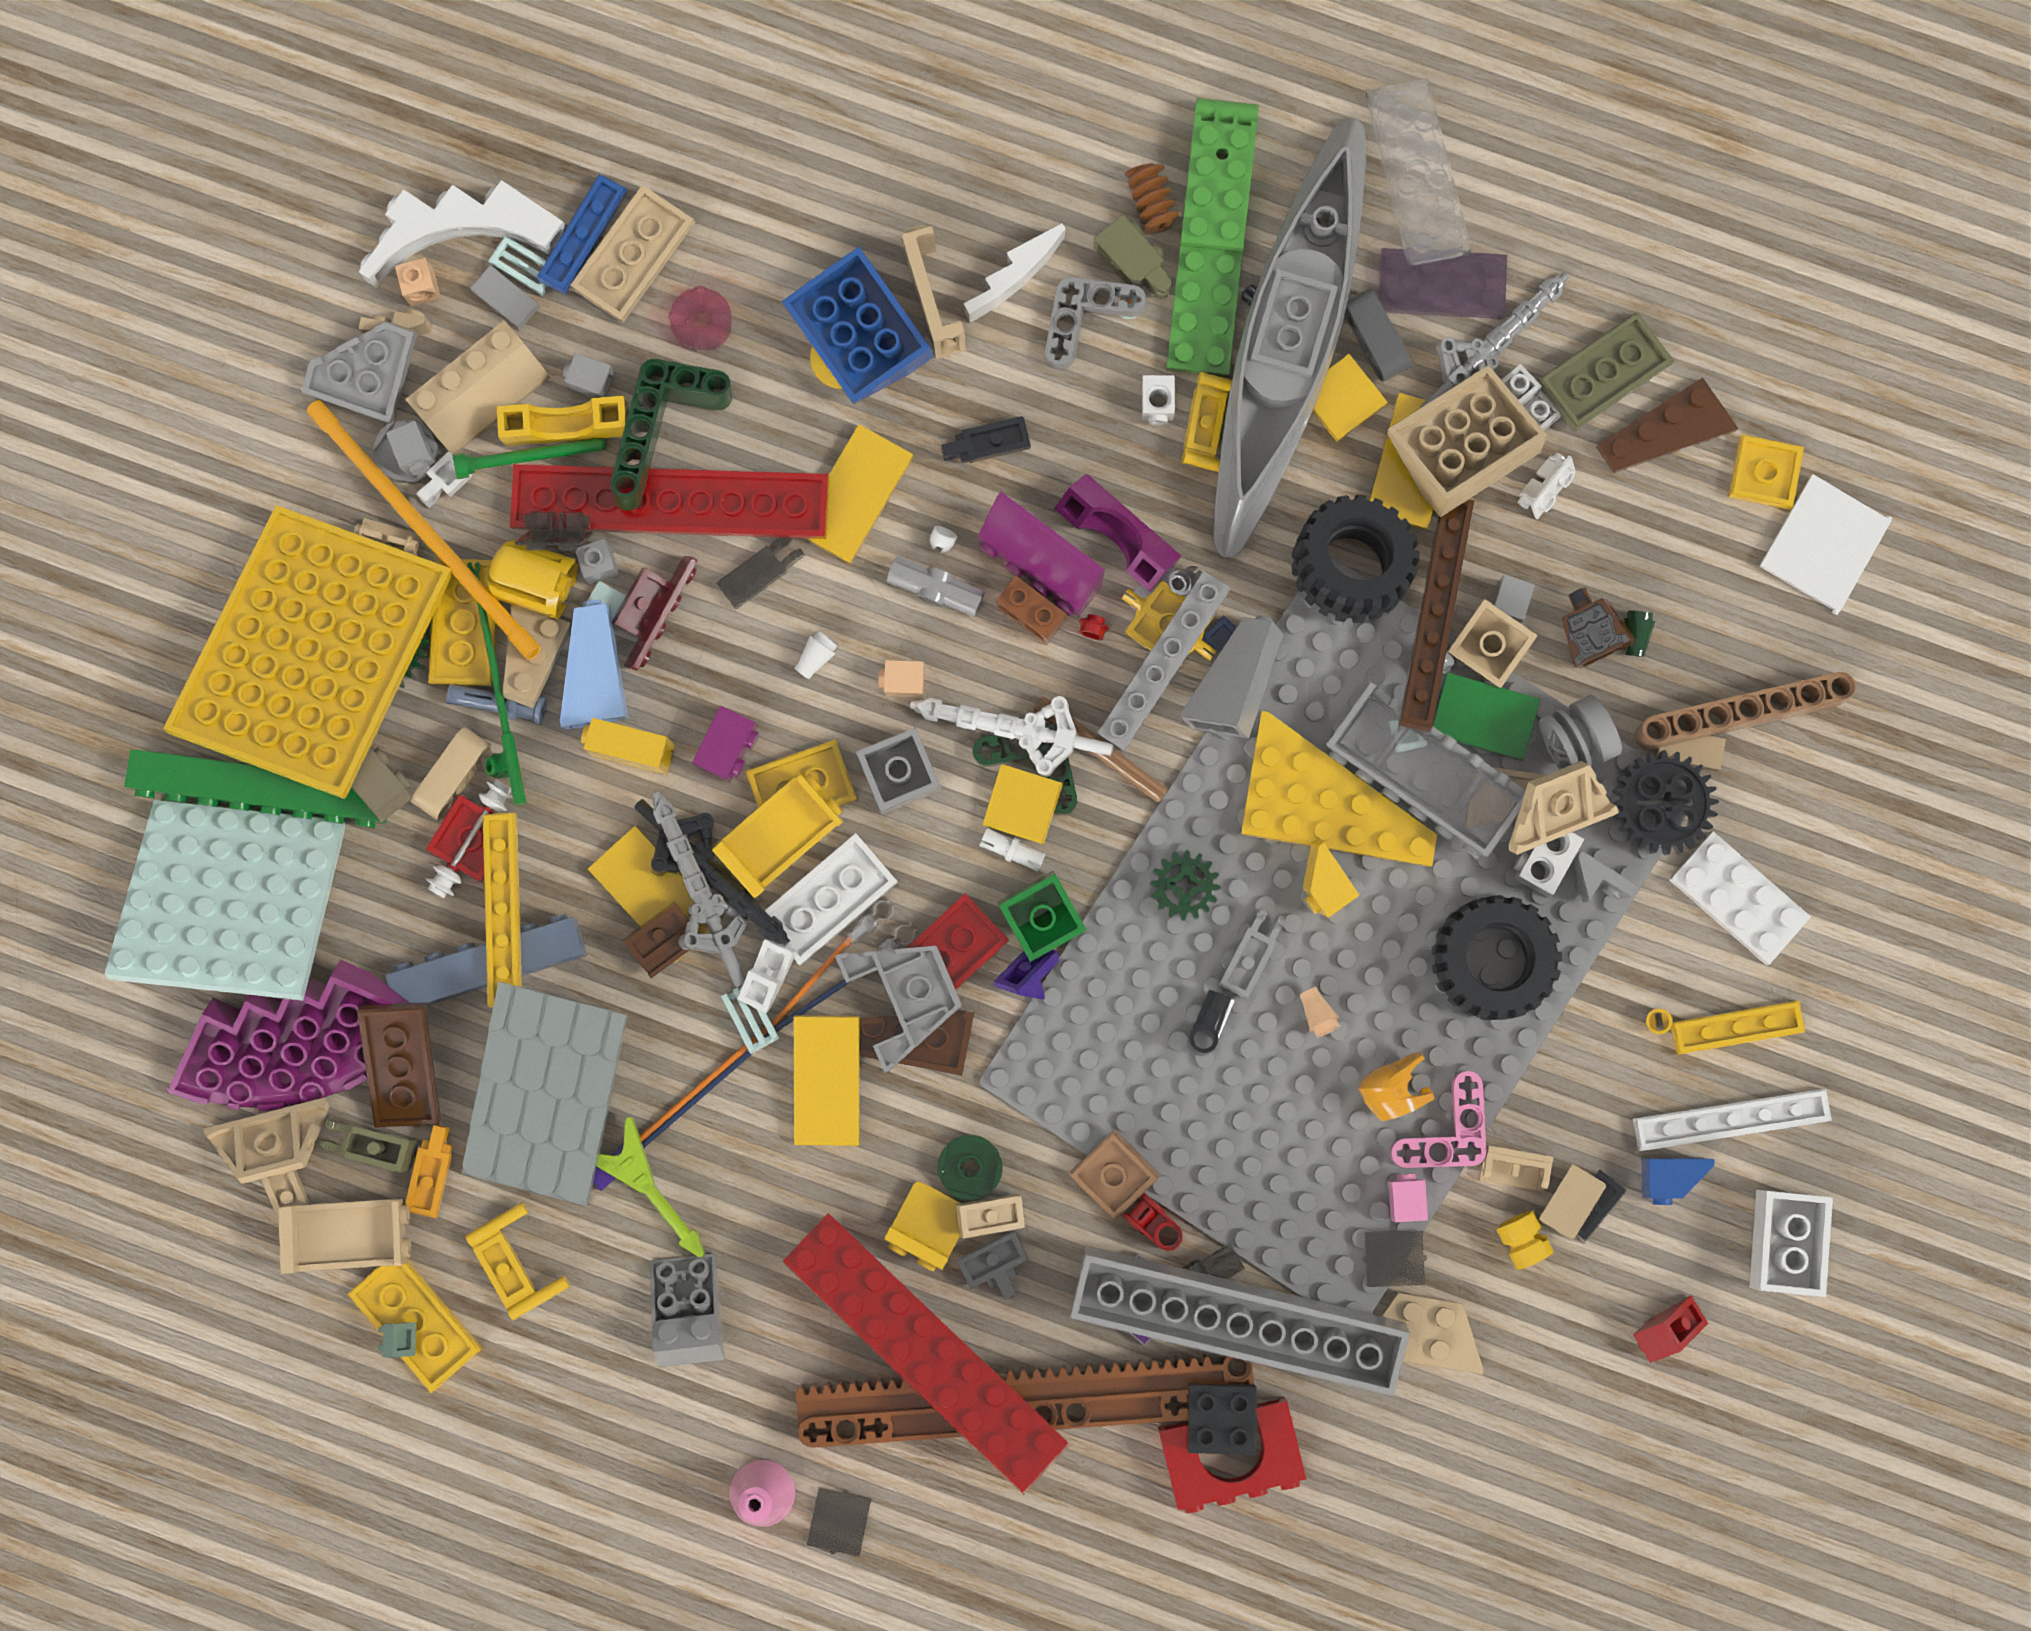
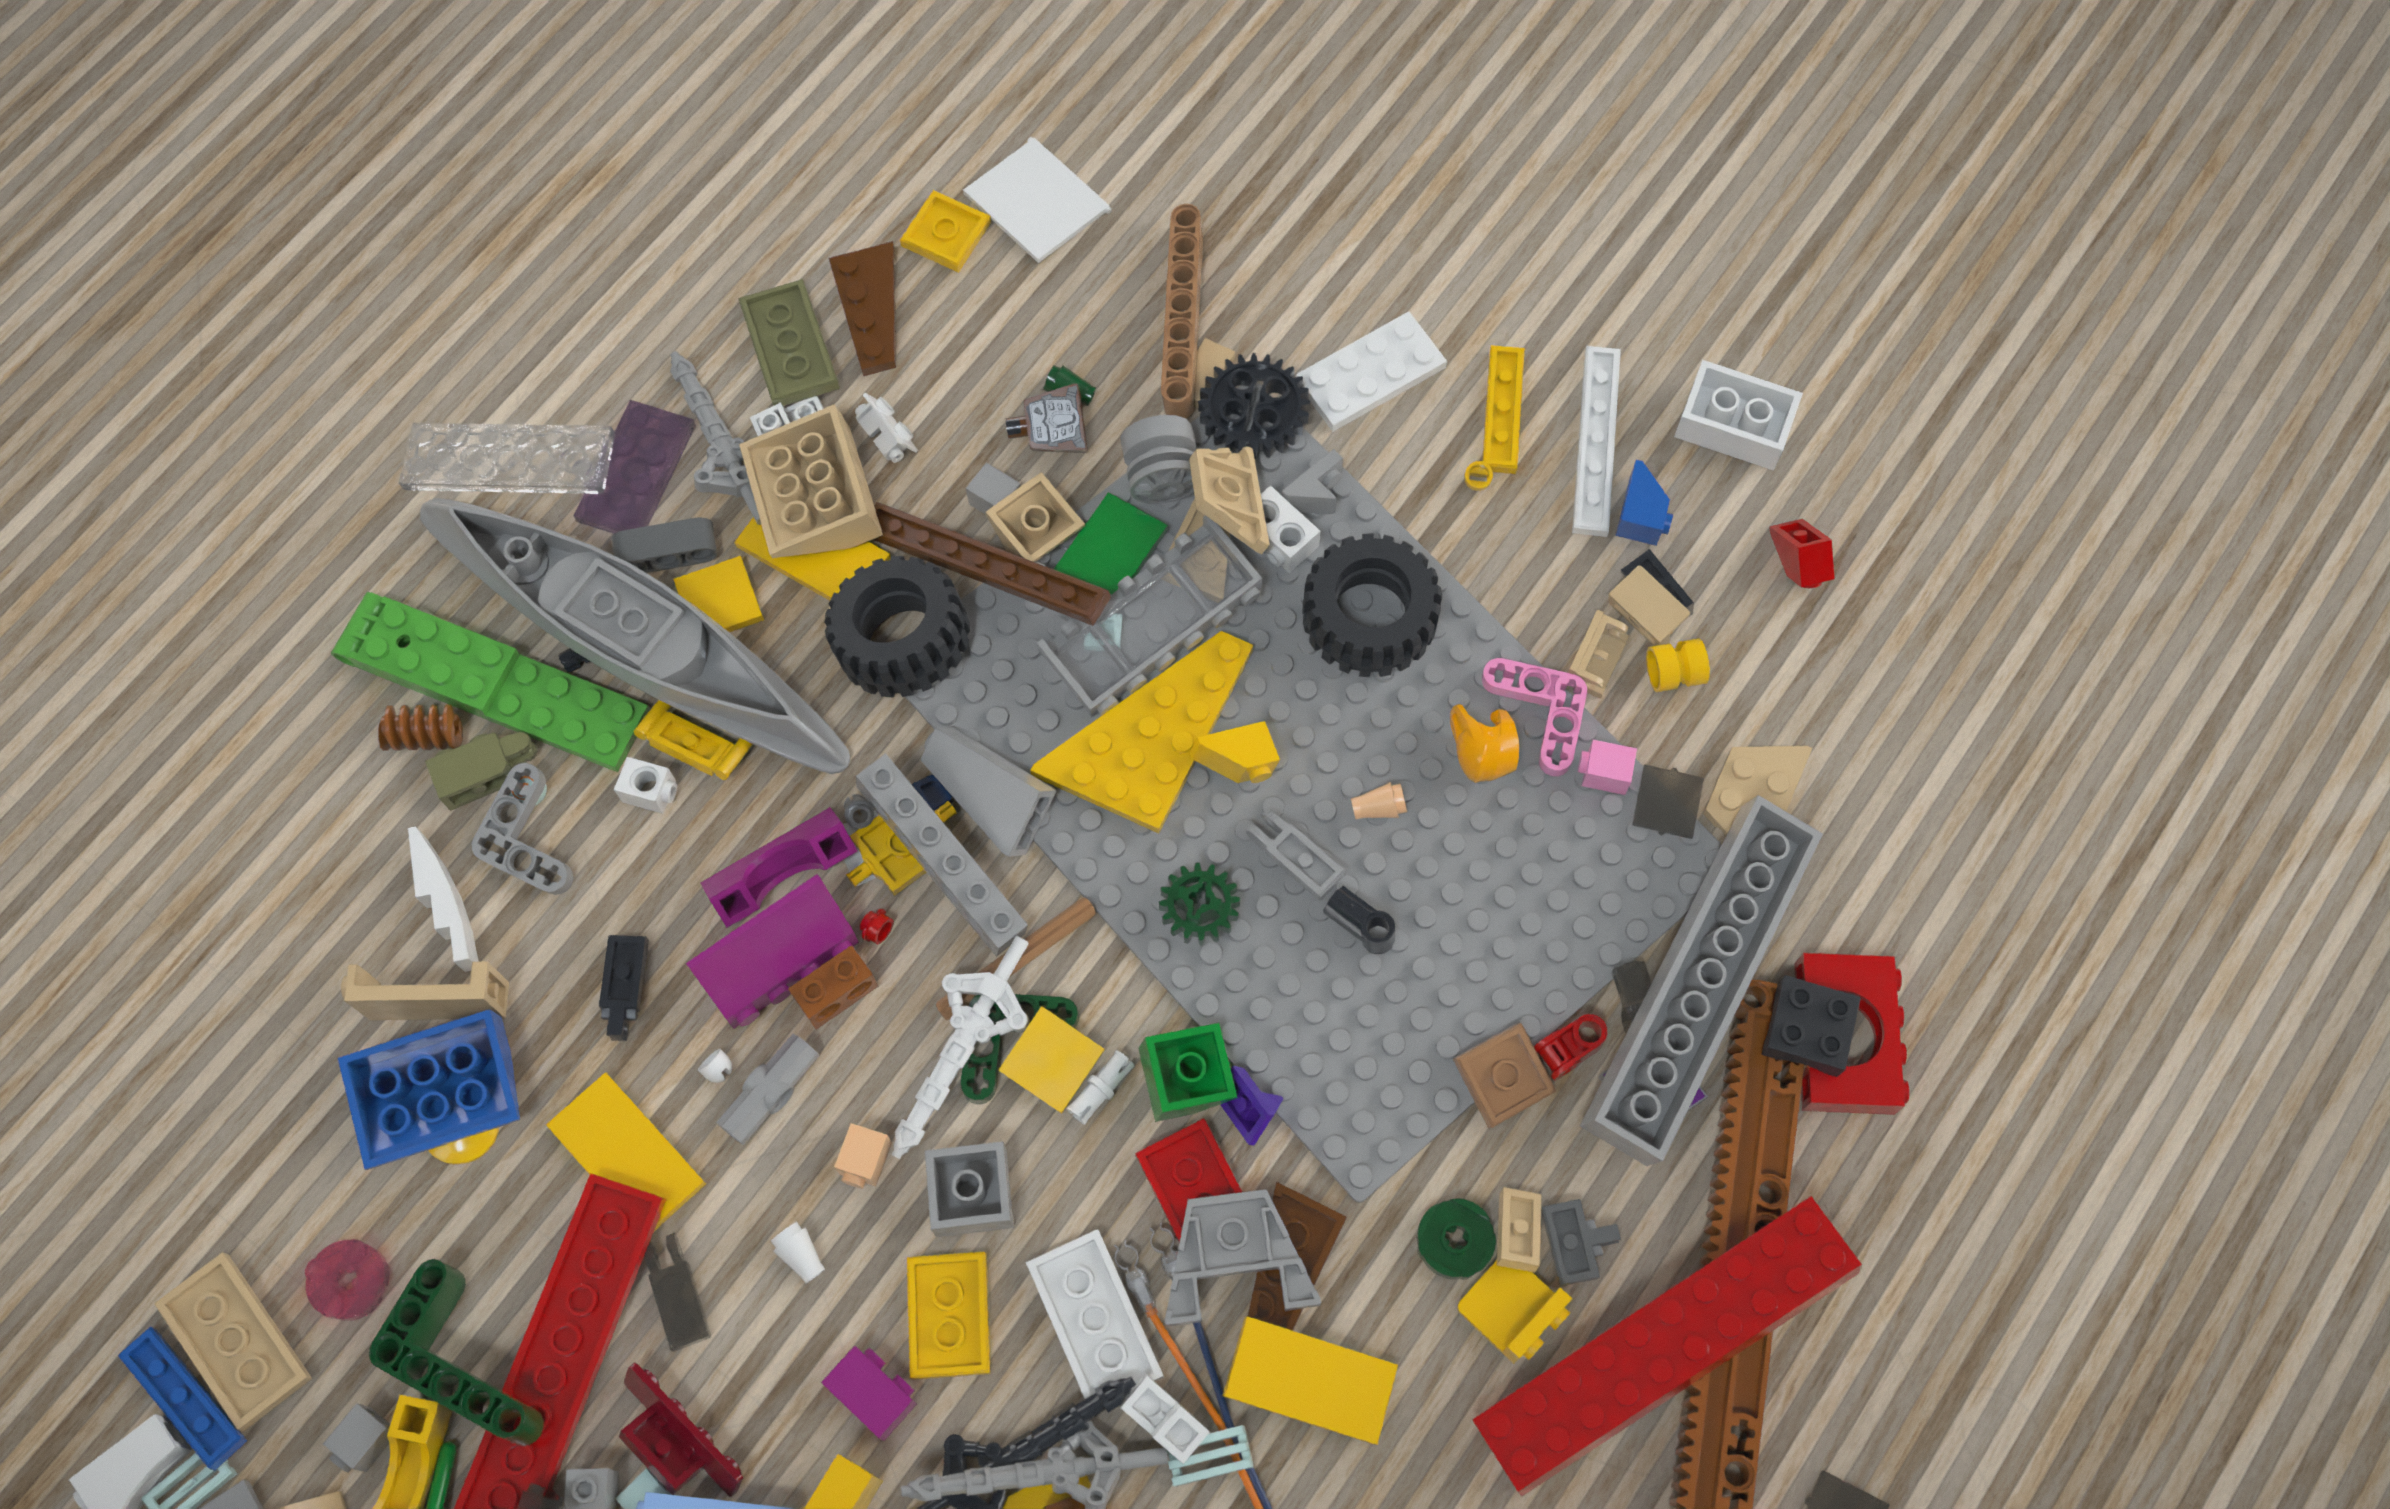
camera: 75 degrees left, 15 degrees down
(778, 833) = (996, 1355): yellow panel -> none

